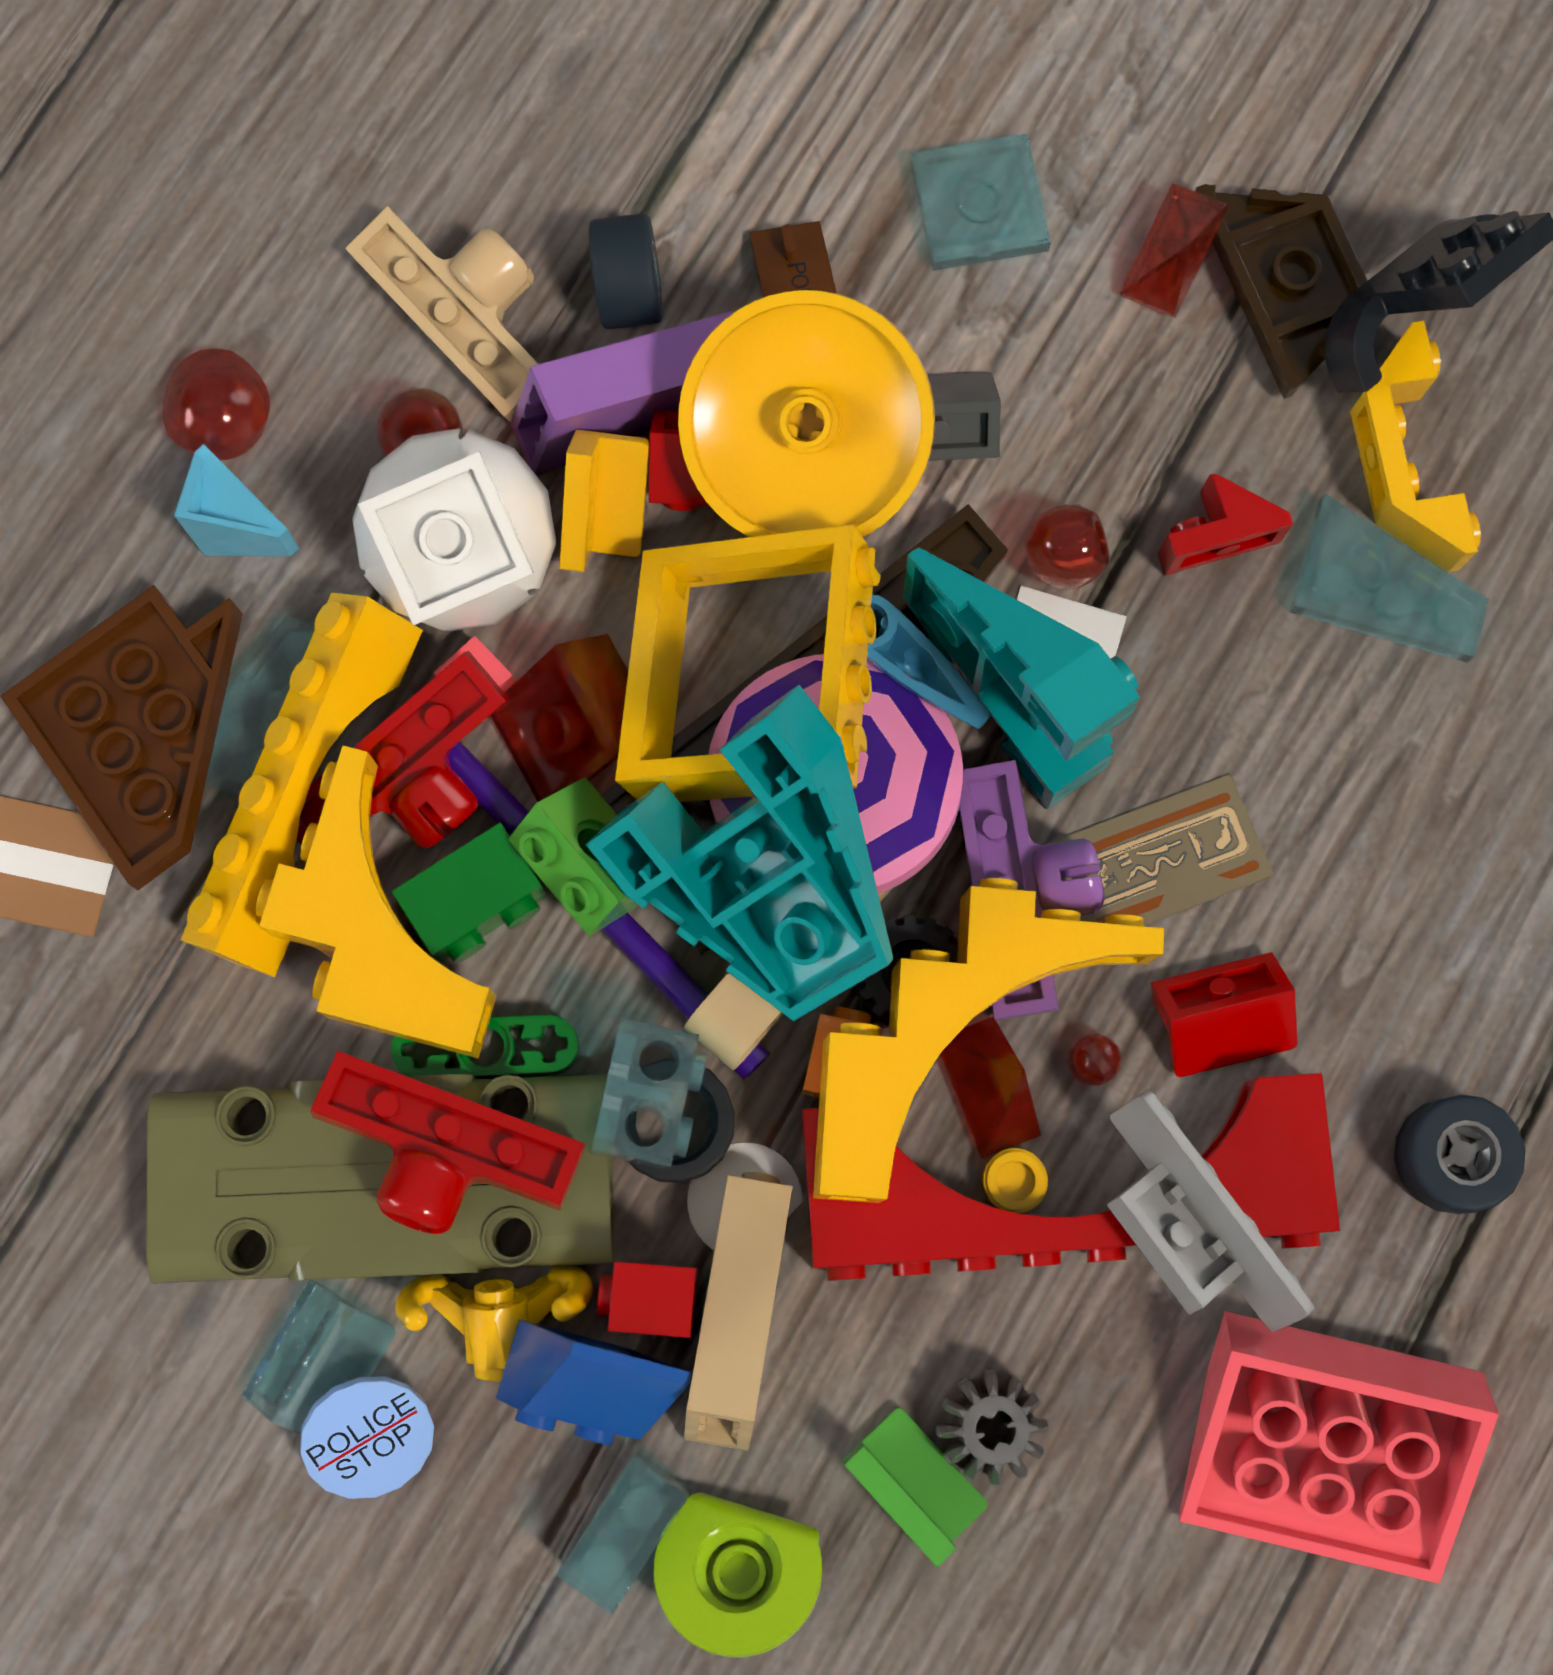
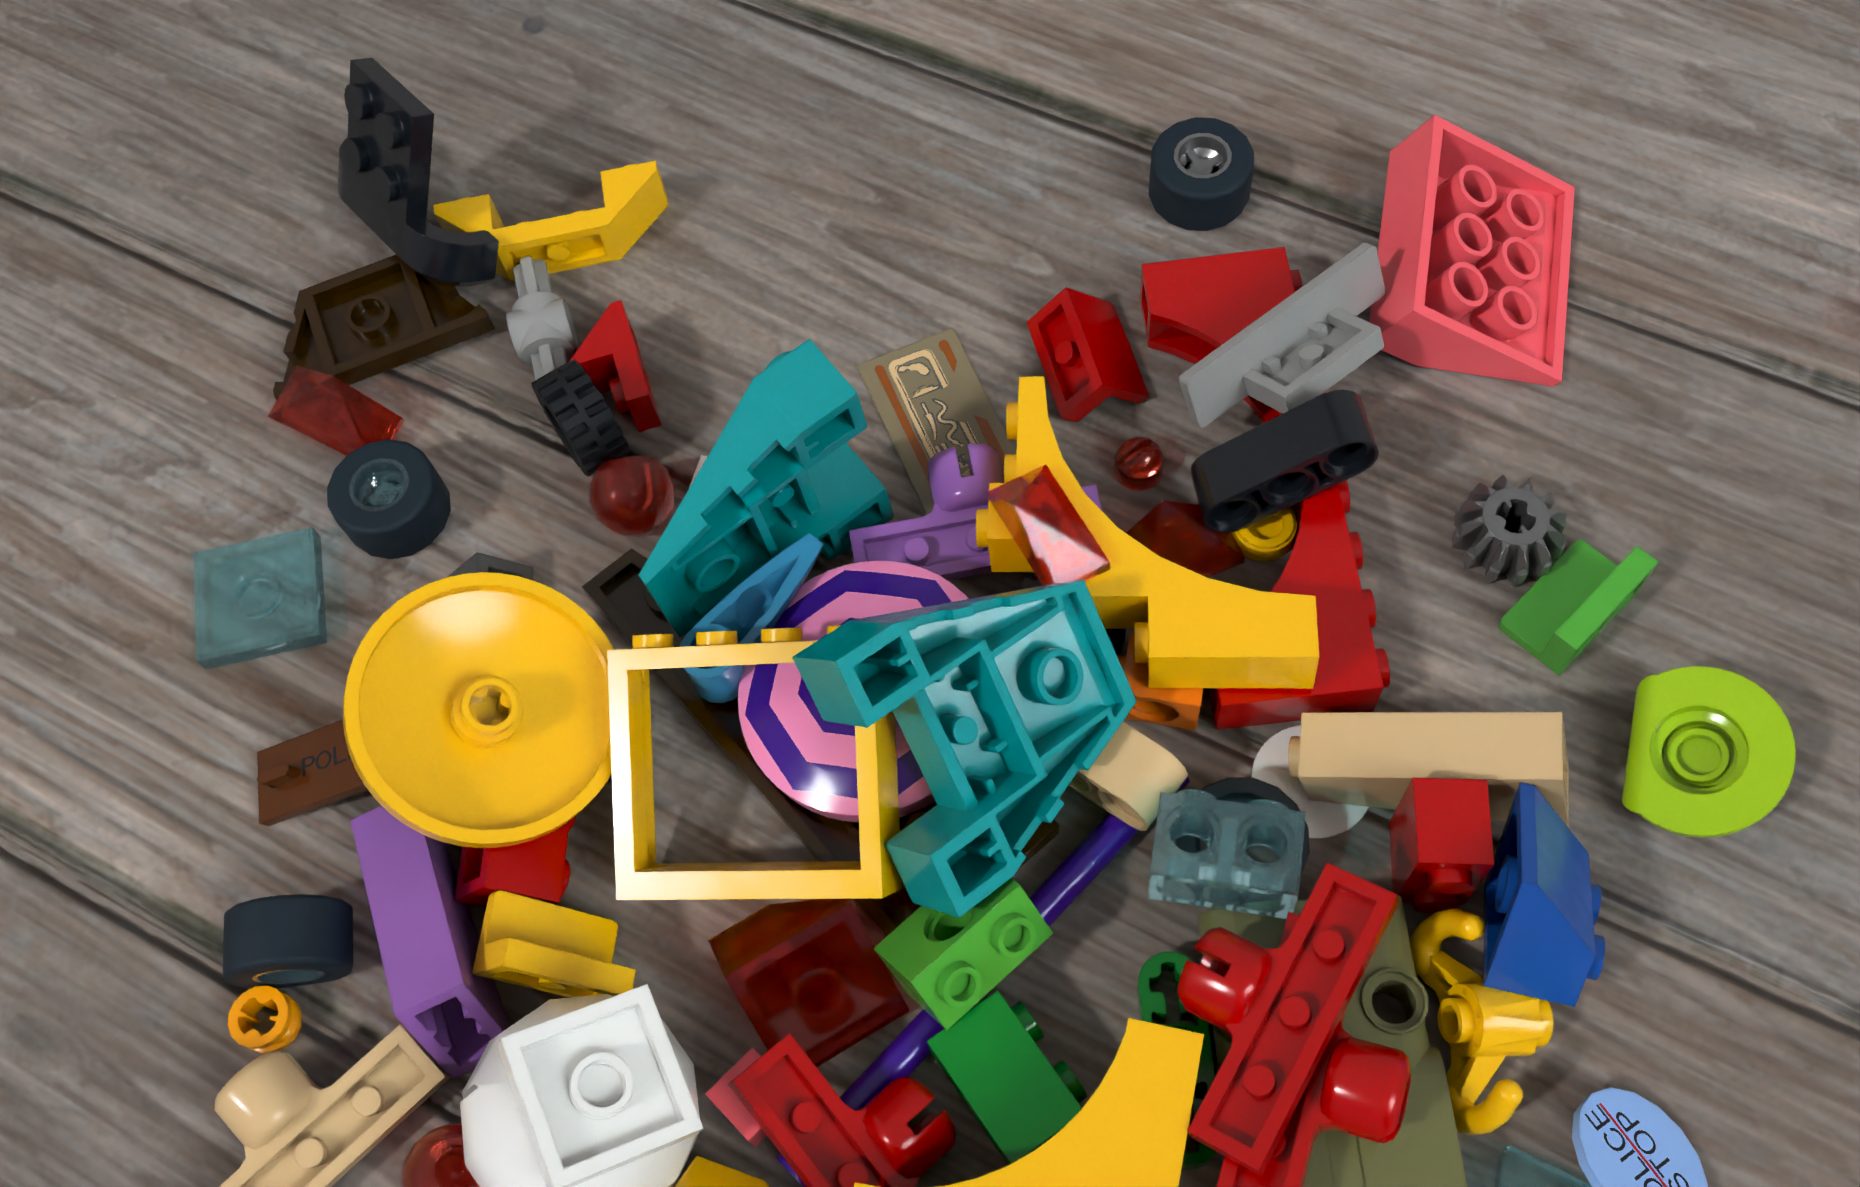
camera: 80 degrees left, 15 degrees down
(490, 1121) = (1279, 1010): none -> red plate
(569, 241) = (243, 1013): none -> light orange bush
(624, 1532) = (1685, 870): clear light blue brick -> none
(973, 943) = (1048, 528): none -> clear red slope
(1059, 1195) = (1284, 461): none -> black beam
(1086, 291) = (389, 499): none -> black wheel
(1152, 490) = (580, 416): none -> black tyre
(1274, 447) = (540, 320): none -> light grey axle
(1384, 588) = (681, 250): clear light blue wing -> none

